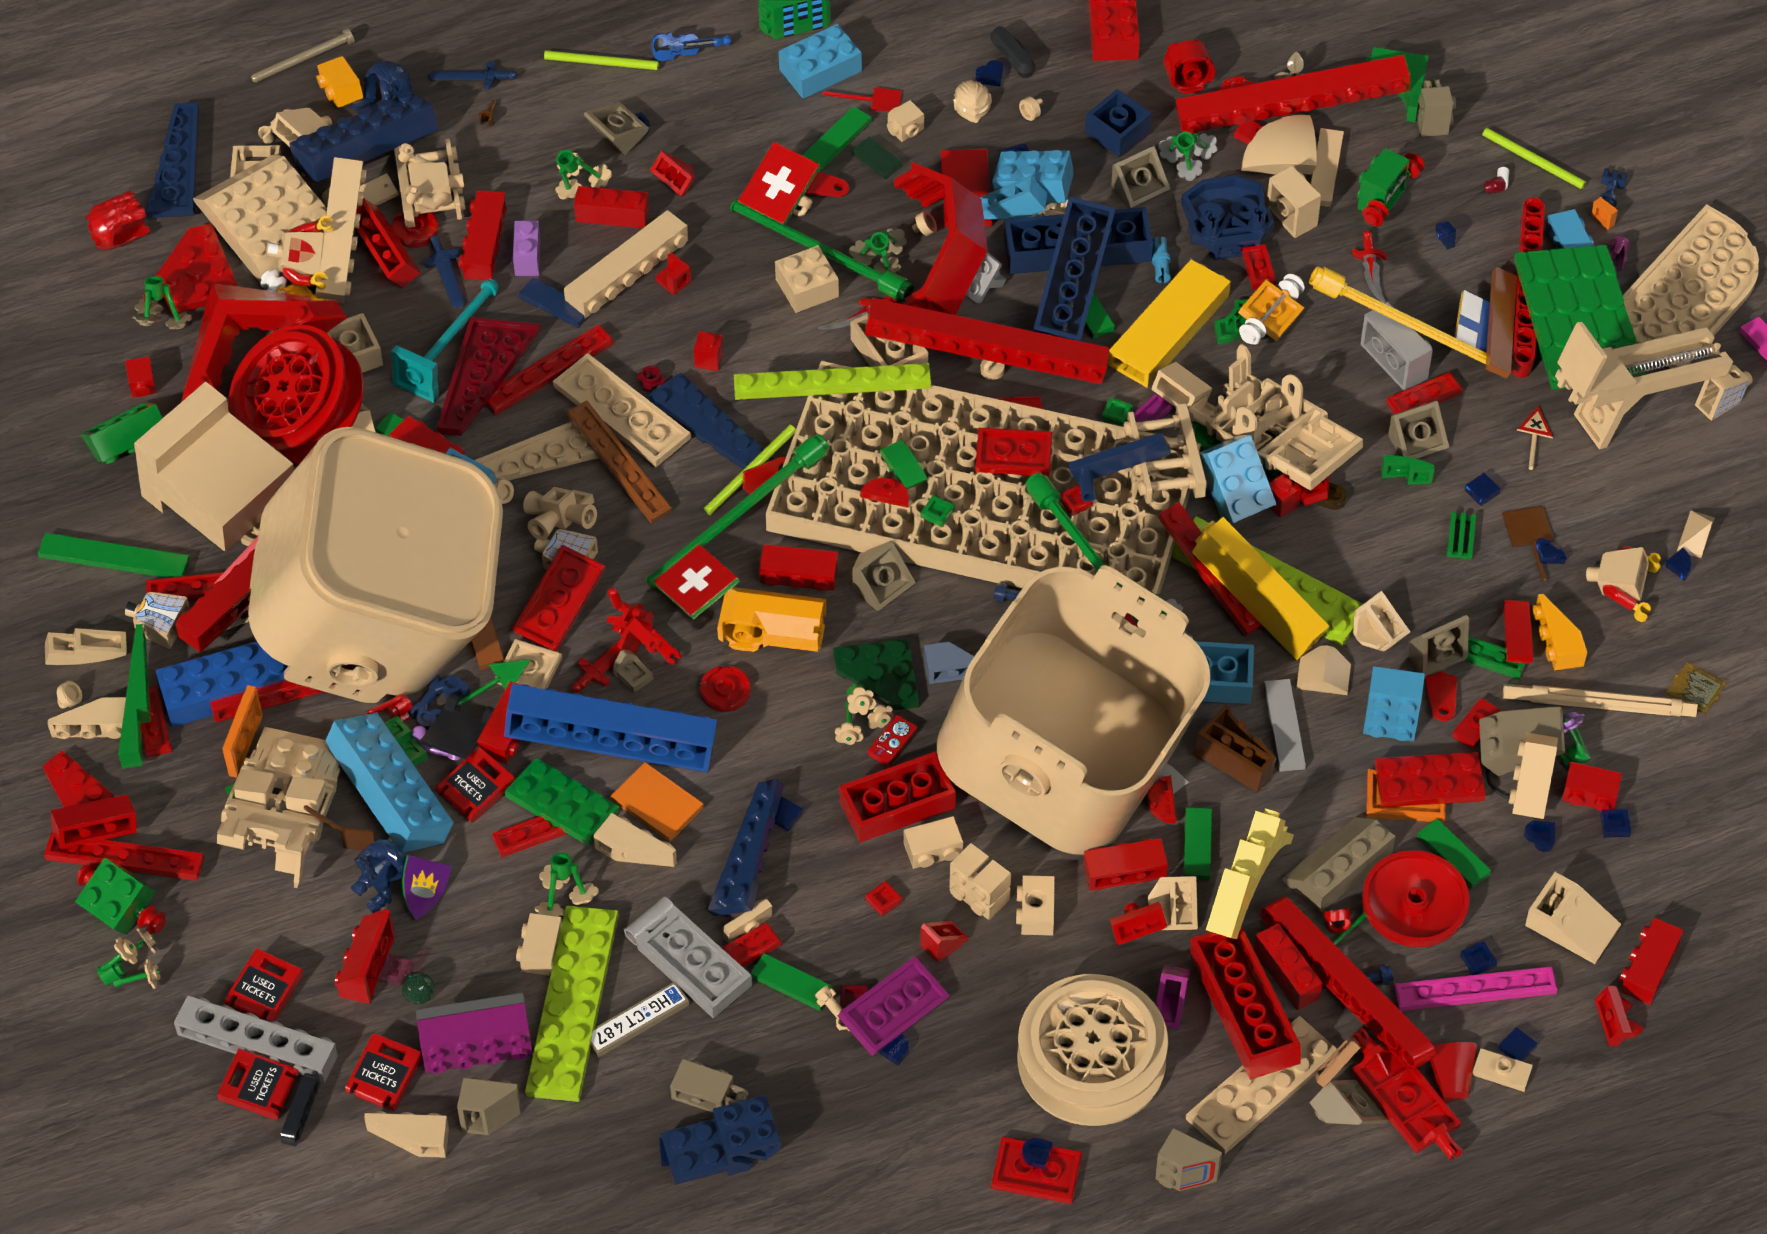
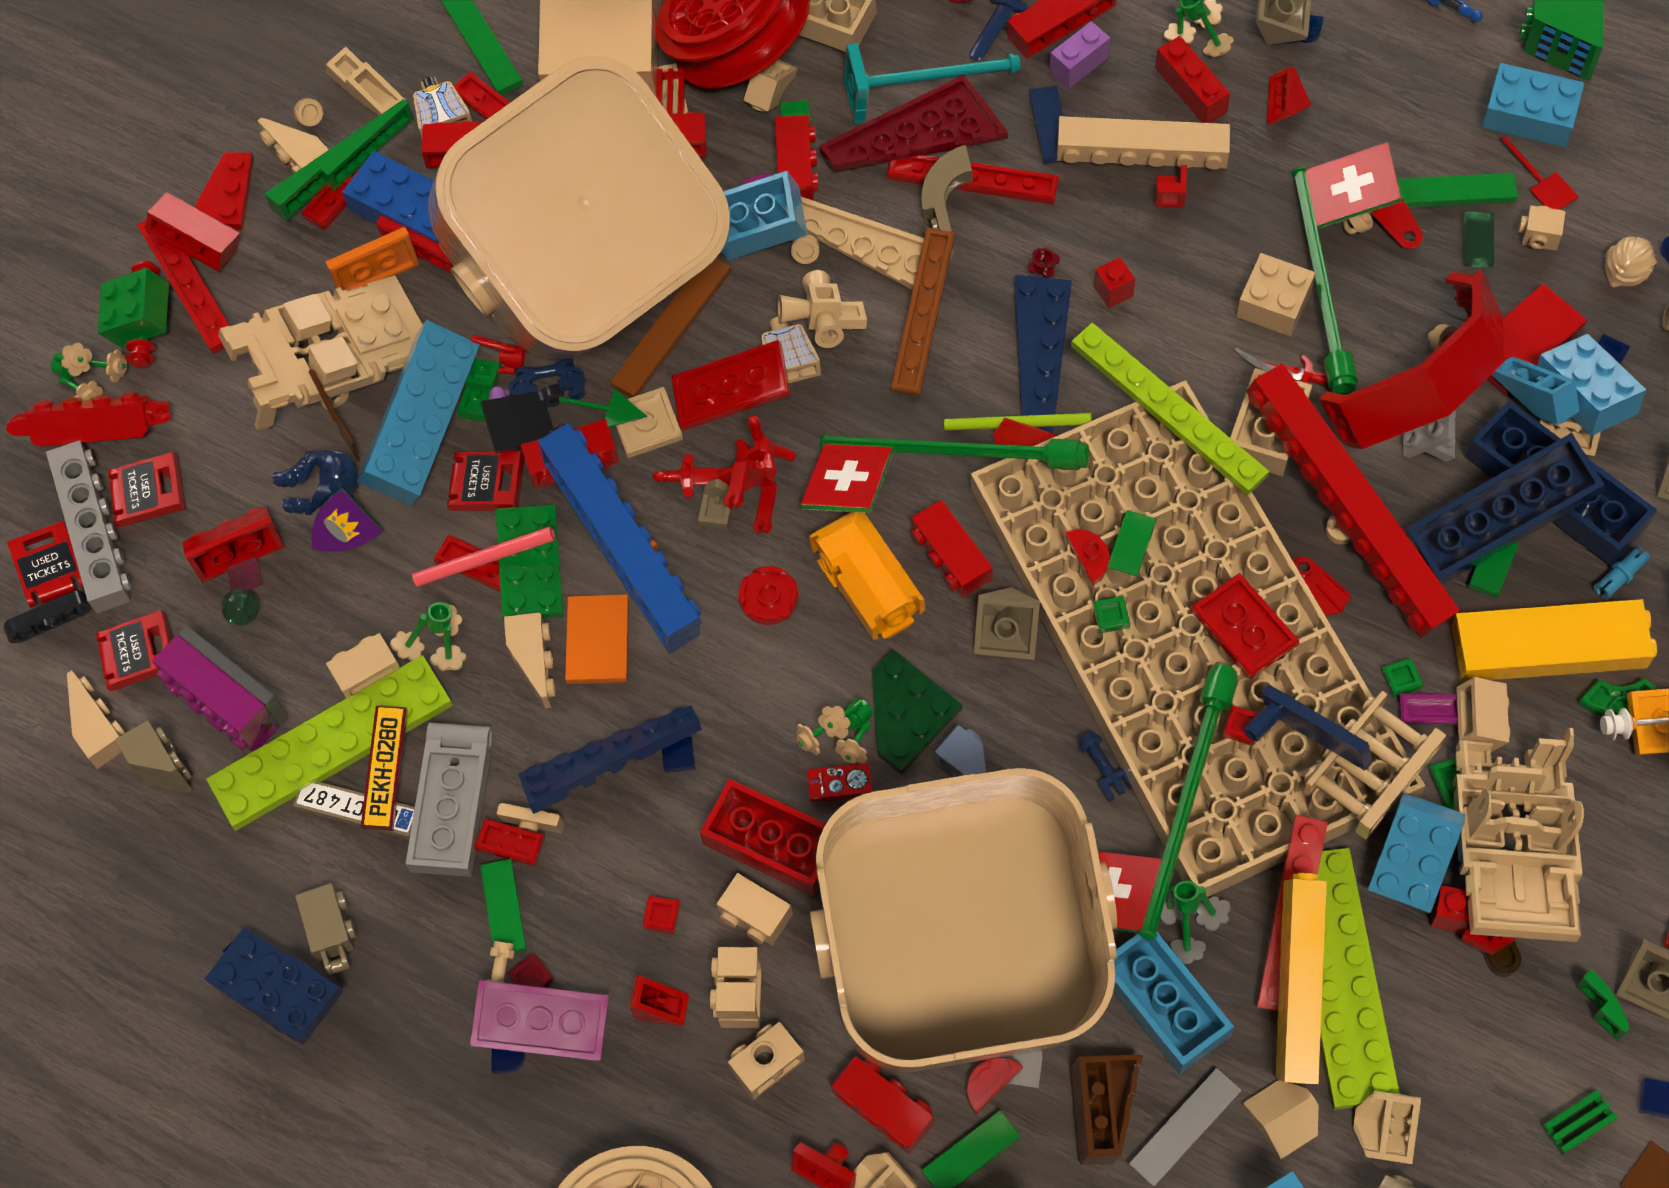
camera: 55 degrees right, 10 degrees up
(175, 981) = (89, 420): none -> red hinge
(535, 818) = (484, 556): none -> coral piece
(539, 388) = (942, 179): none -> dark tan arch
(623, 410) = (984, 269): tan plate -> none
(629, 977) = (384, 768): none -> tile
(880, 244) = (1364, 320): dark tan plant -> none

